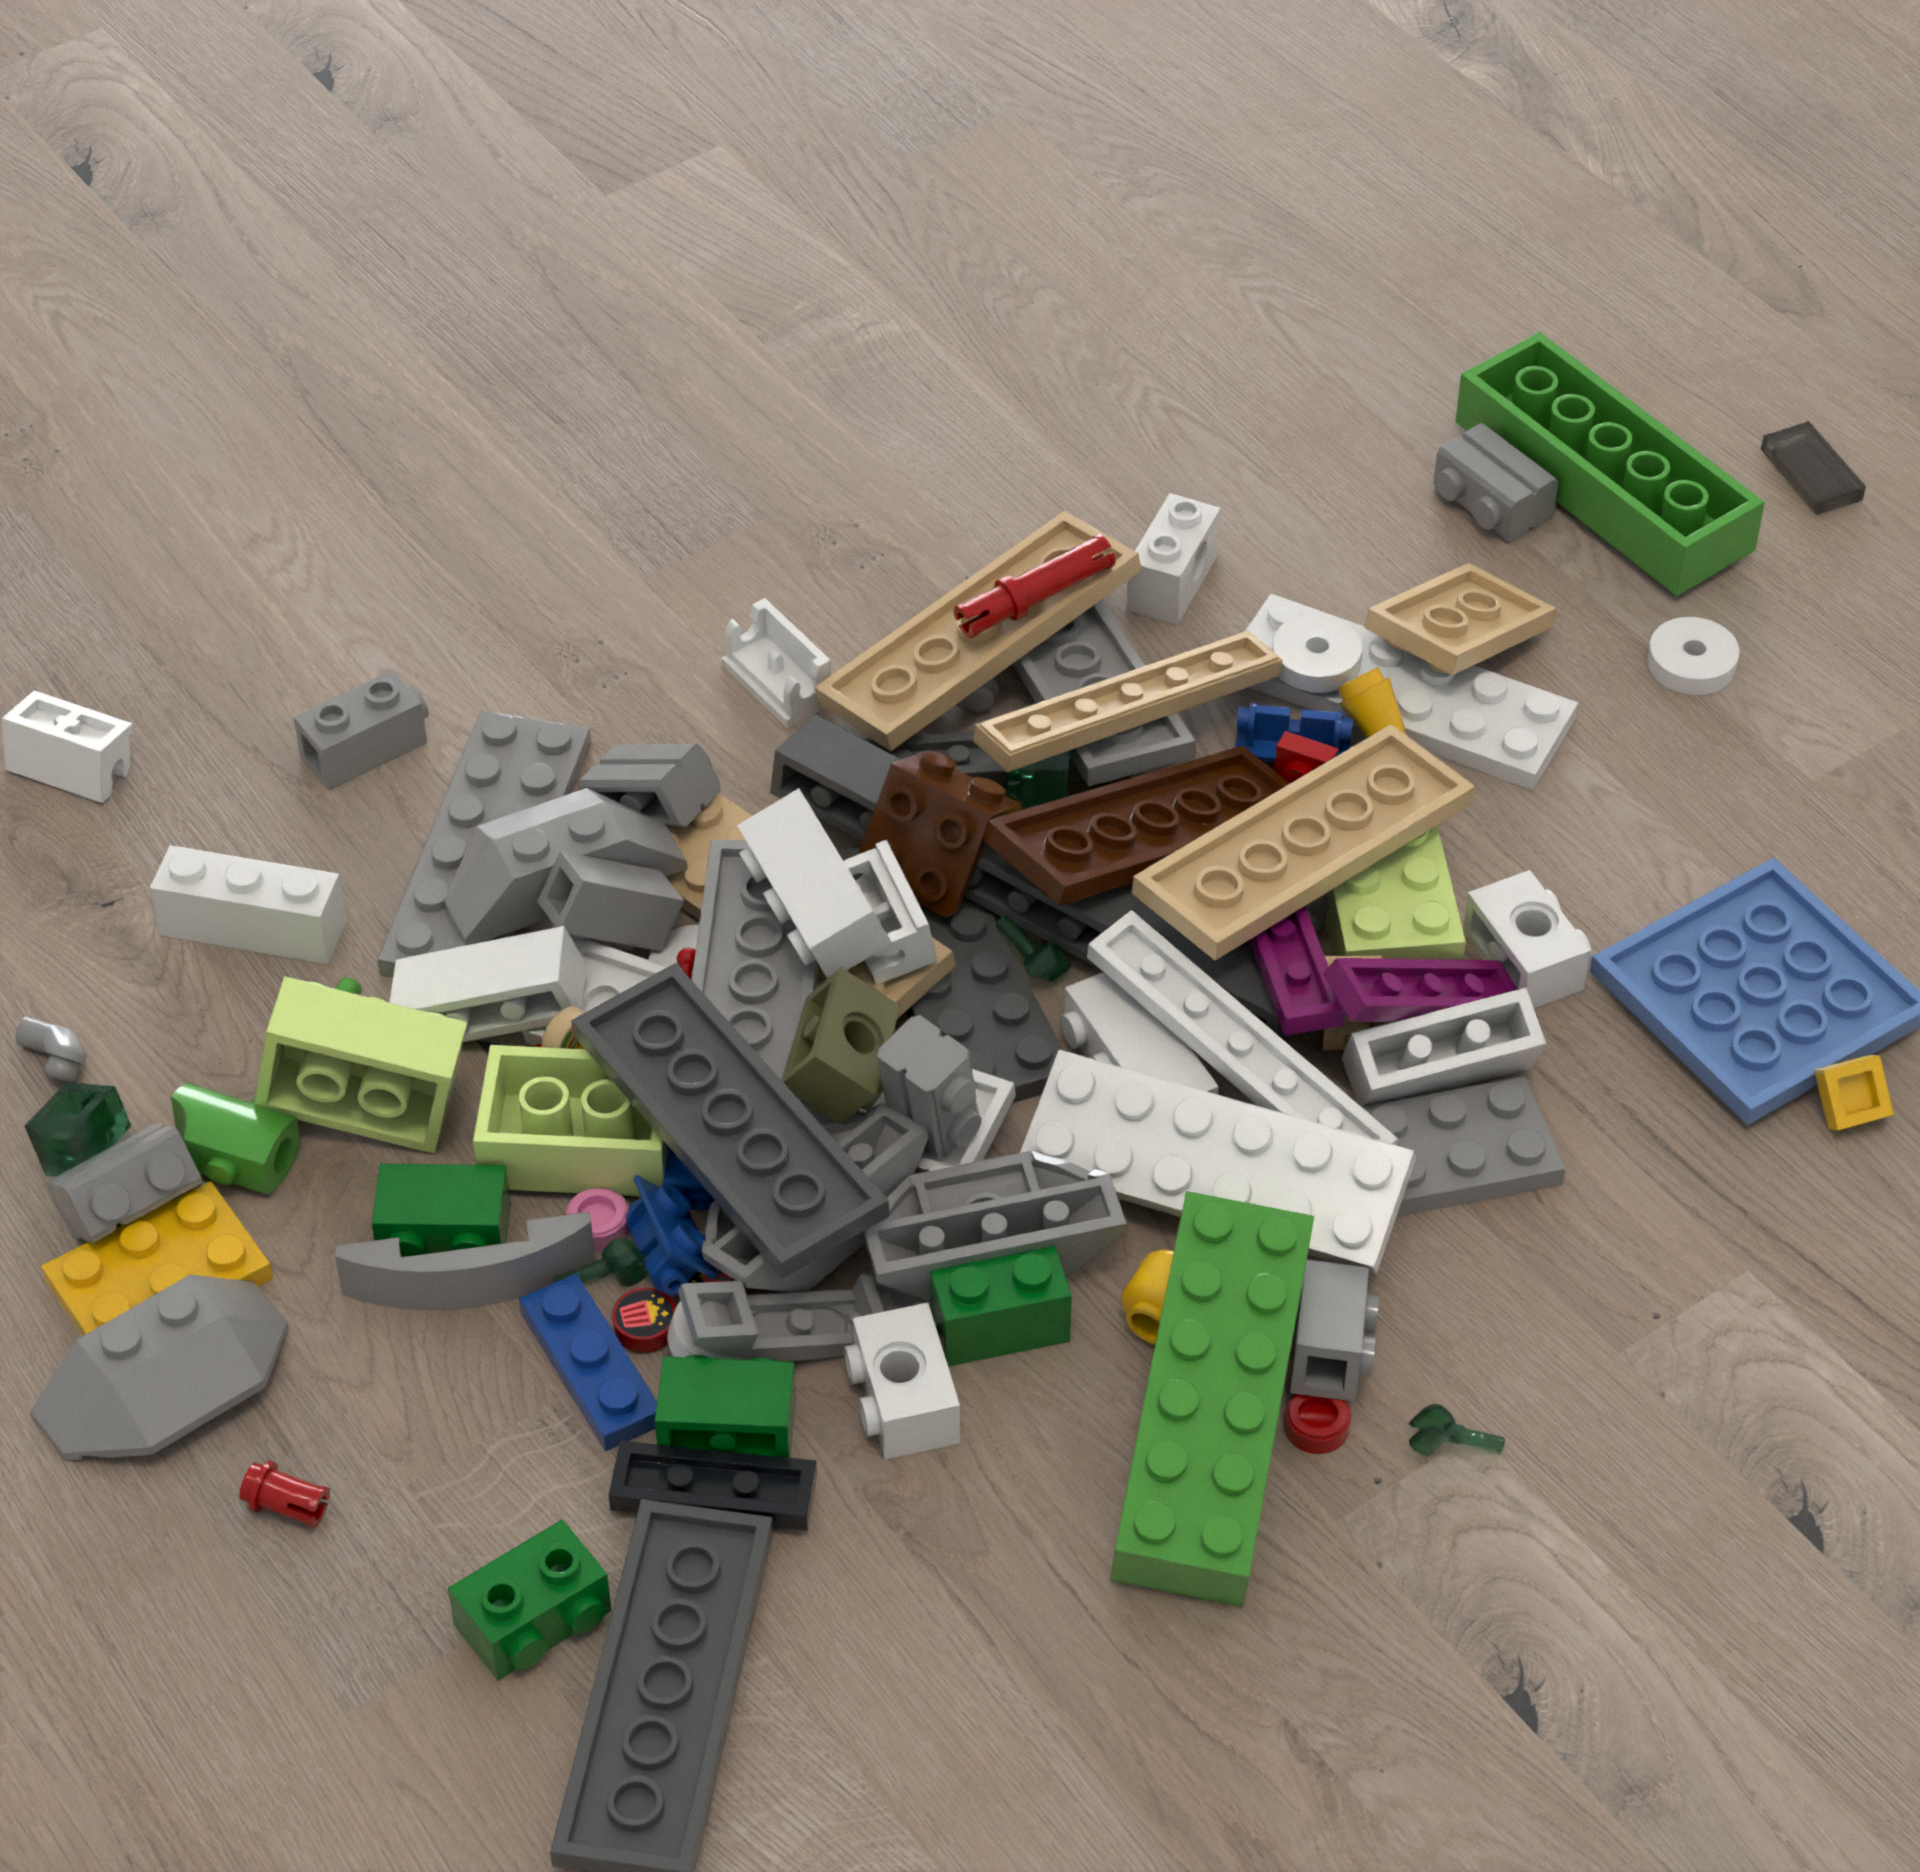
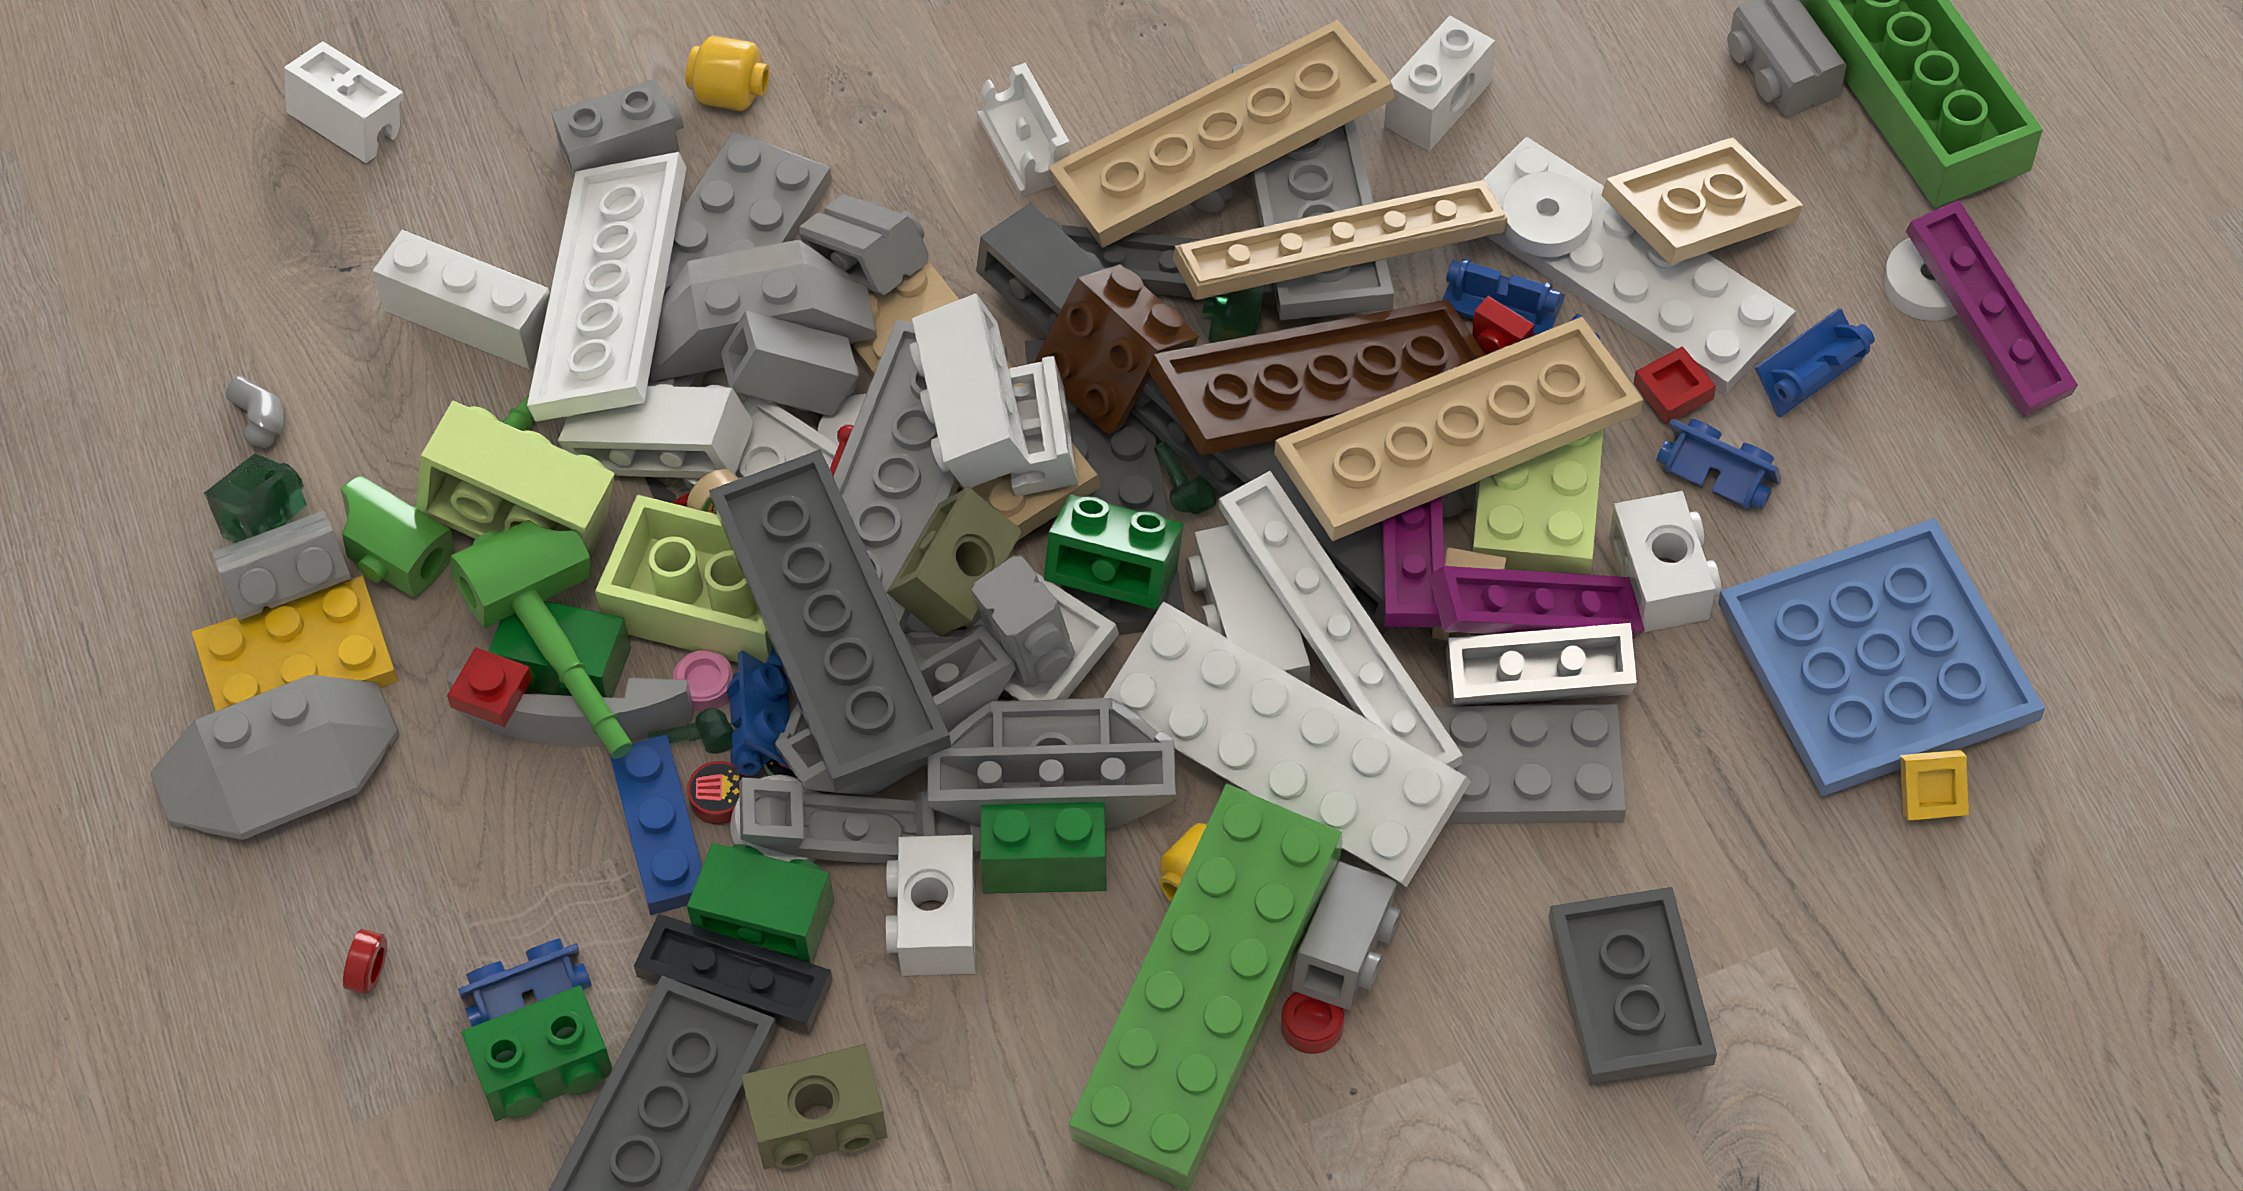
camera: 15 degrees right, 10 degrees up
(283, 1494) = (338, 895): red pin -> none
(318, 1546) = (364, 961): none -> red tile
(385, 1252) = (489, 687): none -> red plate
(389, 1138) = (514, 575): none -> bright green piece
(400, 866) = (608, 288): none -> white plate
(460, 659) = (726, 73): none -> yellow head
(469, 1546) = (545, 973): none -> blue hinge
(855, 1566) = (834, 1080): none -> olive brick
(996, 1011) = (1113, 551): none -> green brick
(1015, 595) = (1258, 109): red pin -> none
(1371, 703) = (1585, 285): yellow cone -> none
(1439, 1426) = (1426, 1055): clear green hand -> none
(1494, 784) = (1674, 385): none -> red plate
(1531, 836) = (1741, 470): none -> blue hinge
(1611, 741) = (1813, 360): none -> blue hinge
(1624, 1326) = (1632, 985): none -> dark grey plate
(1764, 667) = (1991, 308): none -> magenta plate
(1813, 467) = (2120, 87): clear smoke tile -> none

